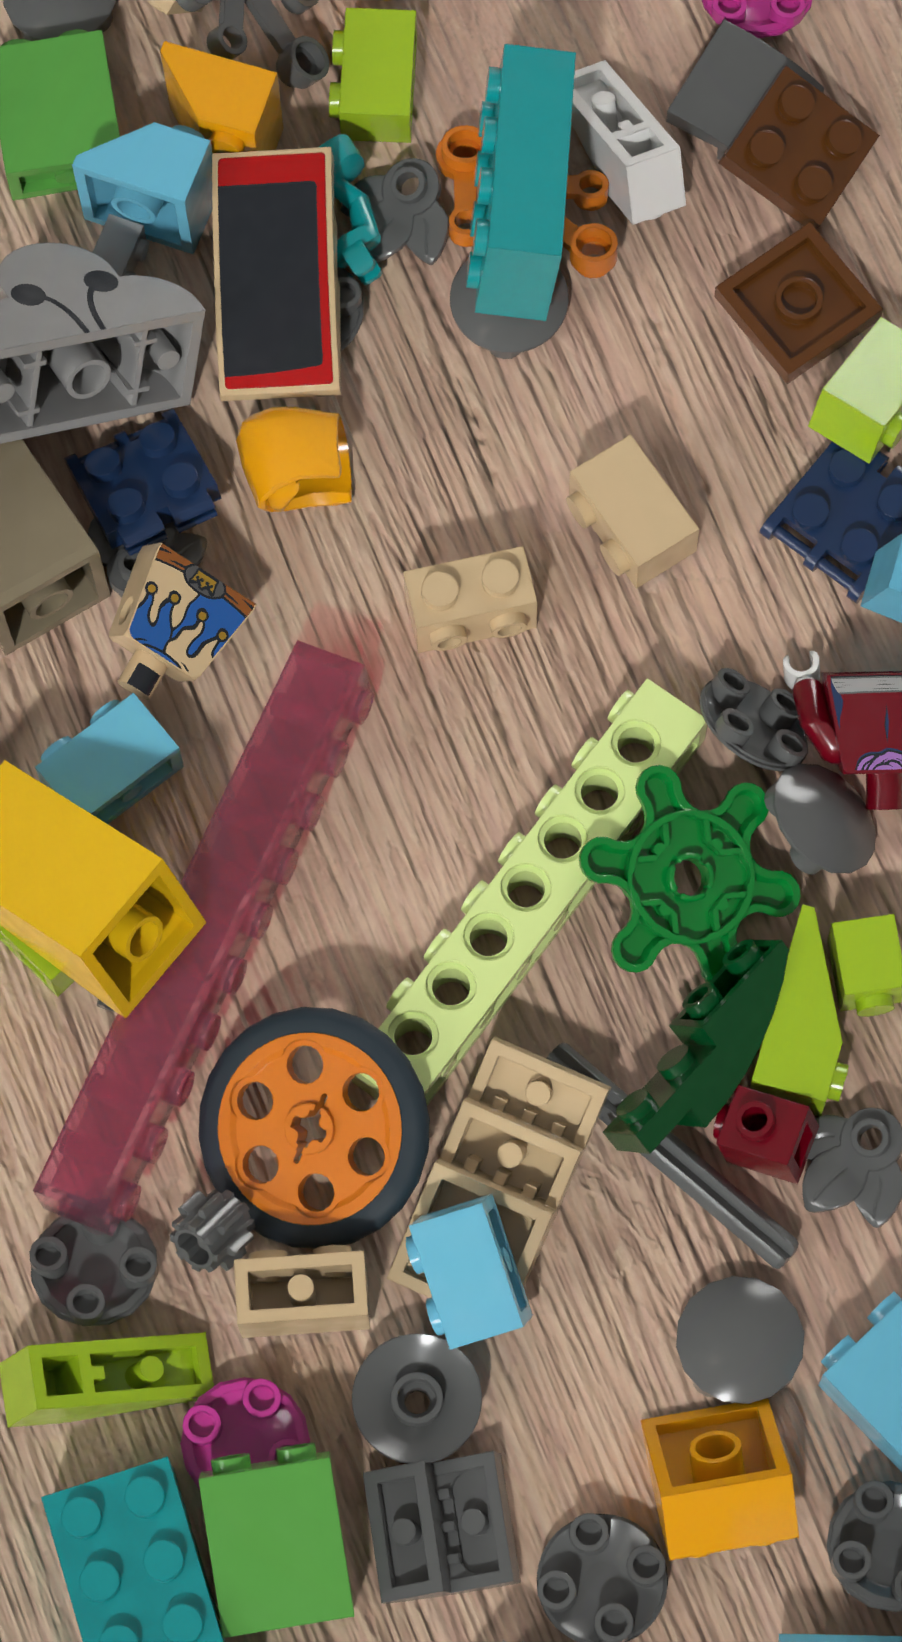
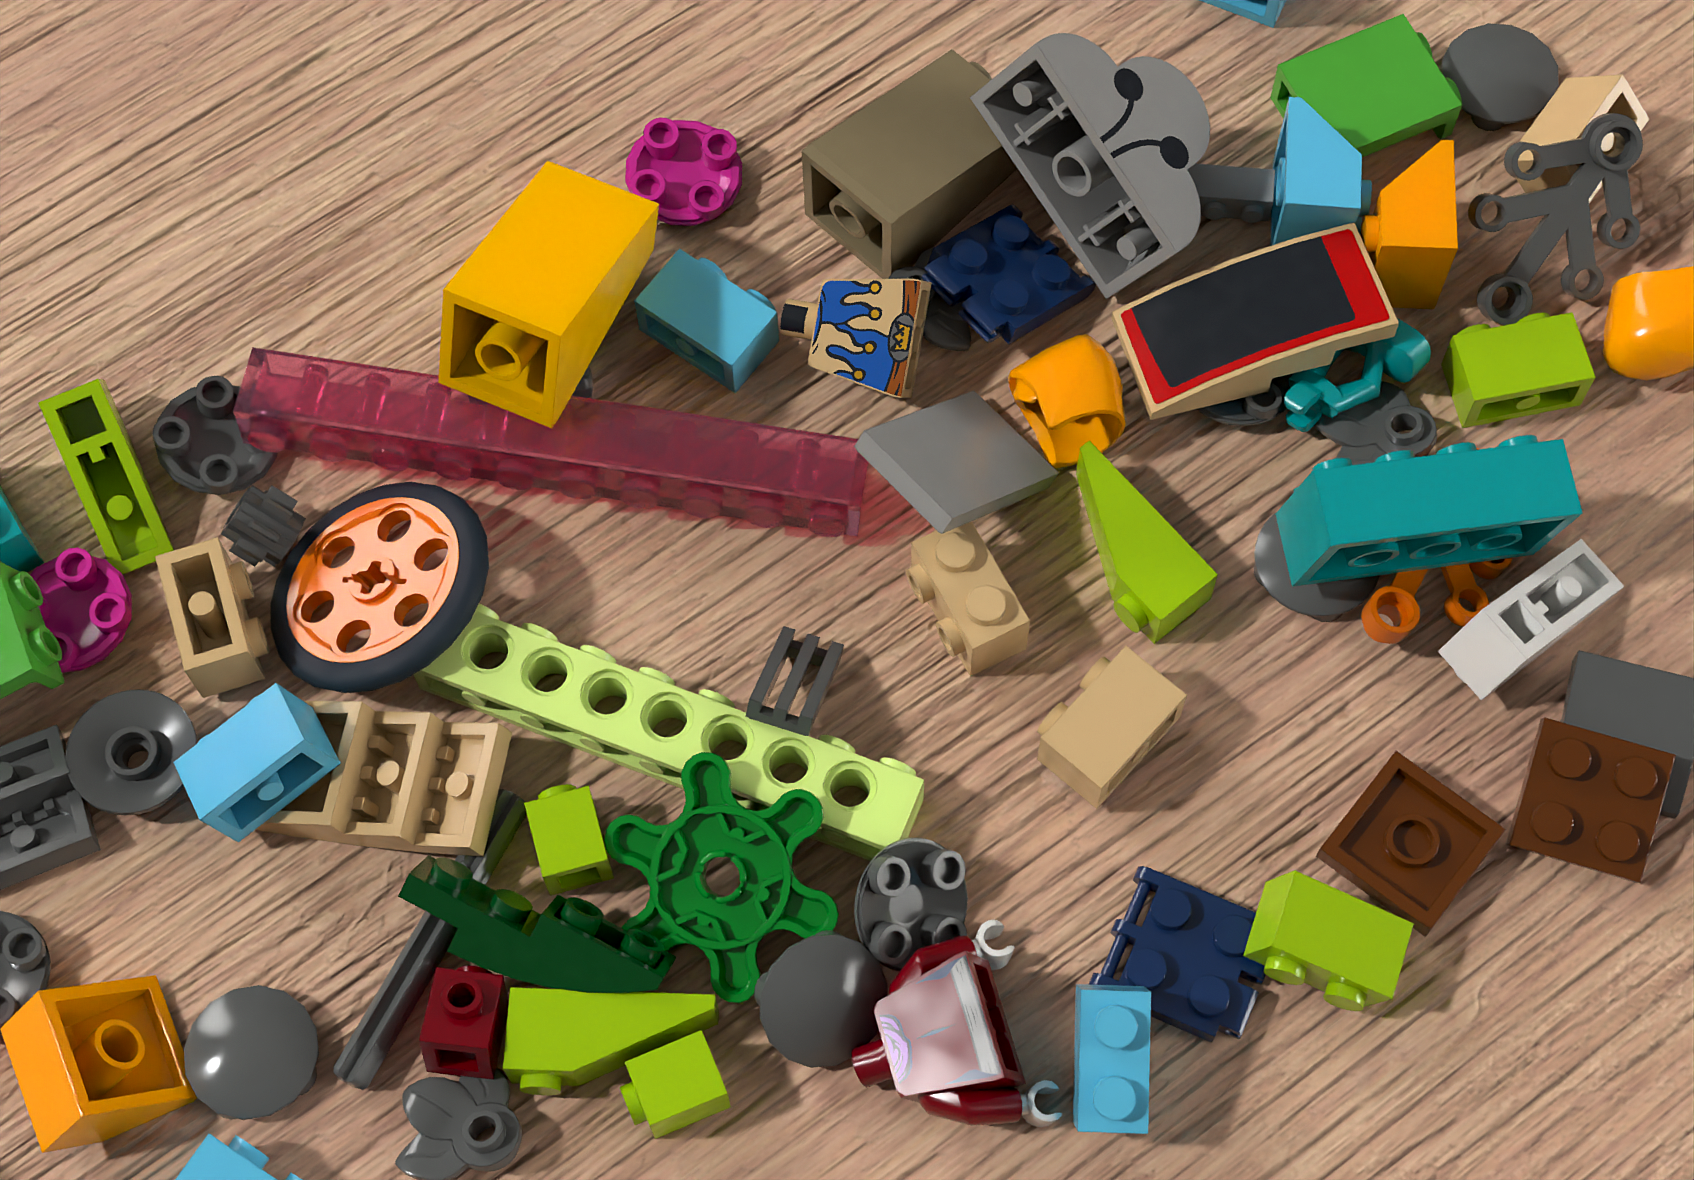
camera: 75 degrees right, 5 degrees down
(342, 569) = (956, 461): none -> light grey tile
(468, 445) = (1146, 562): none -> lime slope
(522, 749) = (805, 654): none -> dark grey tile
(610, 1009) = (568, 838): none -> lime brick

